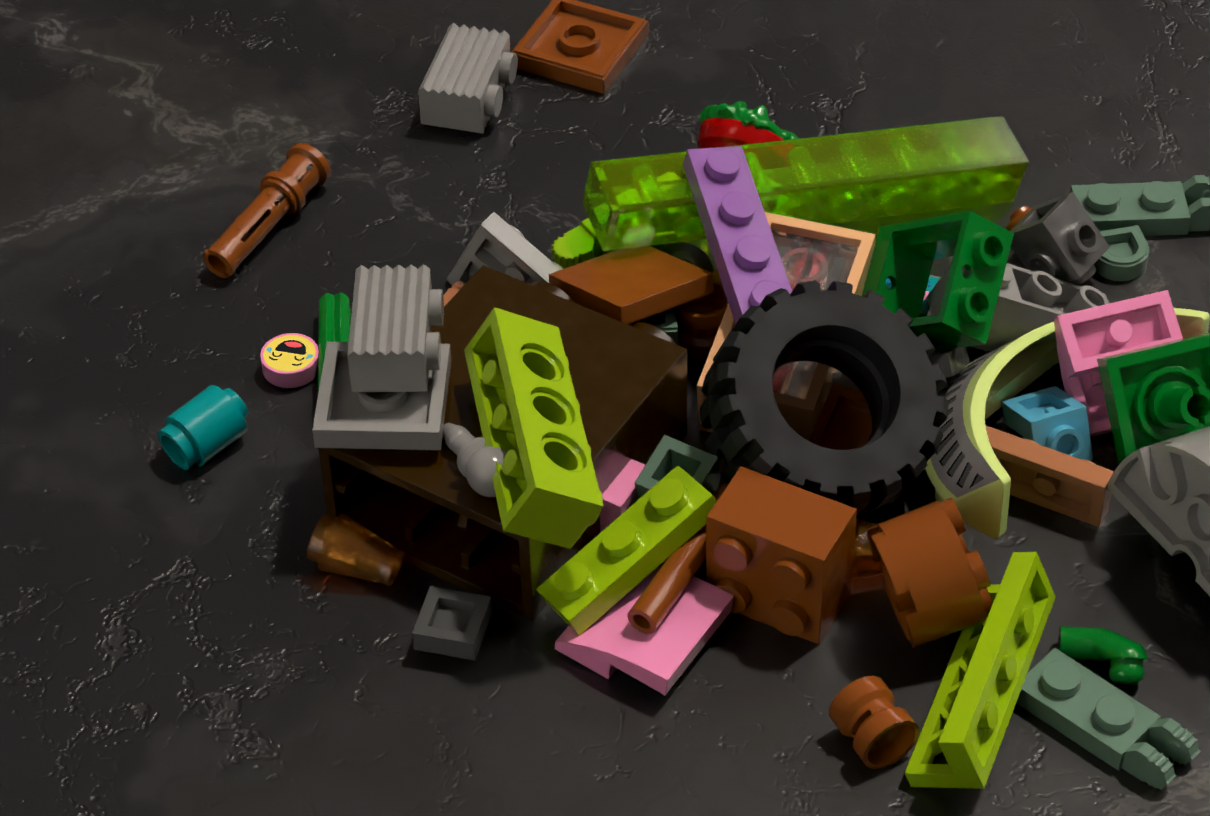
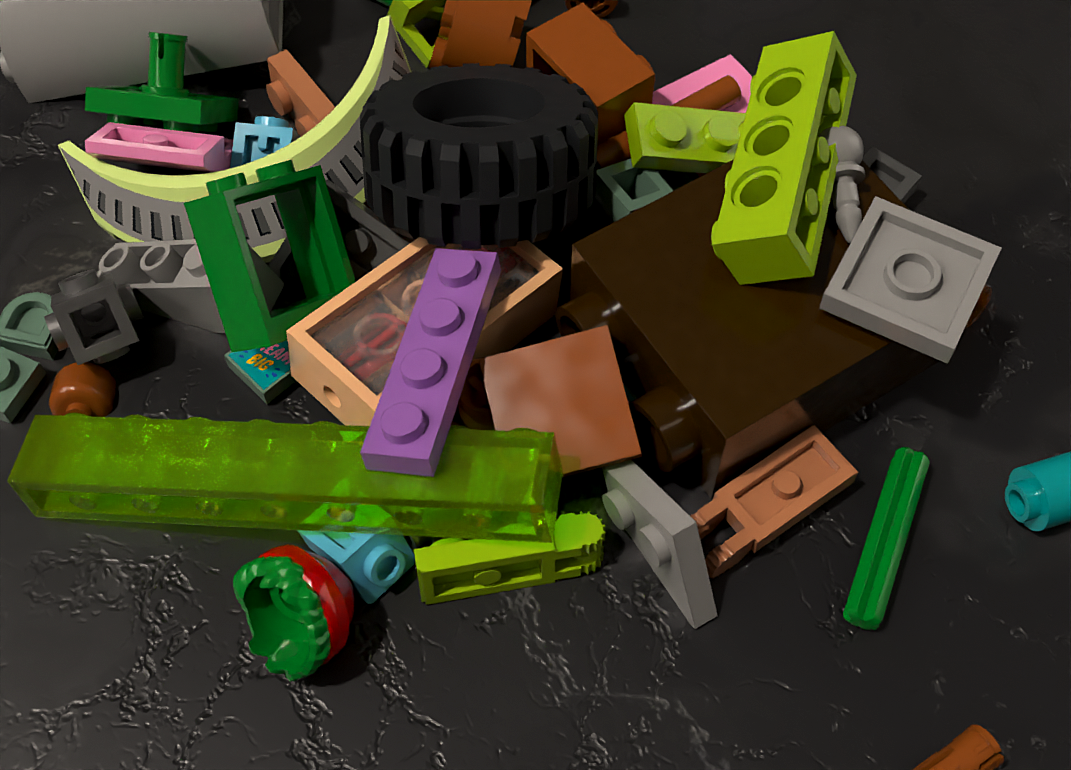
camera: 155 degrees left, 15 degrees up
(290, 360) = (935, 560): tile -> none
(392, 329) = (893, 285): light grey brick -> none

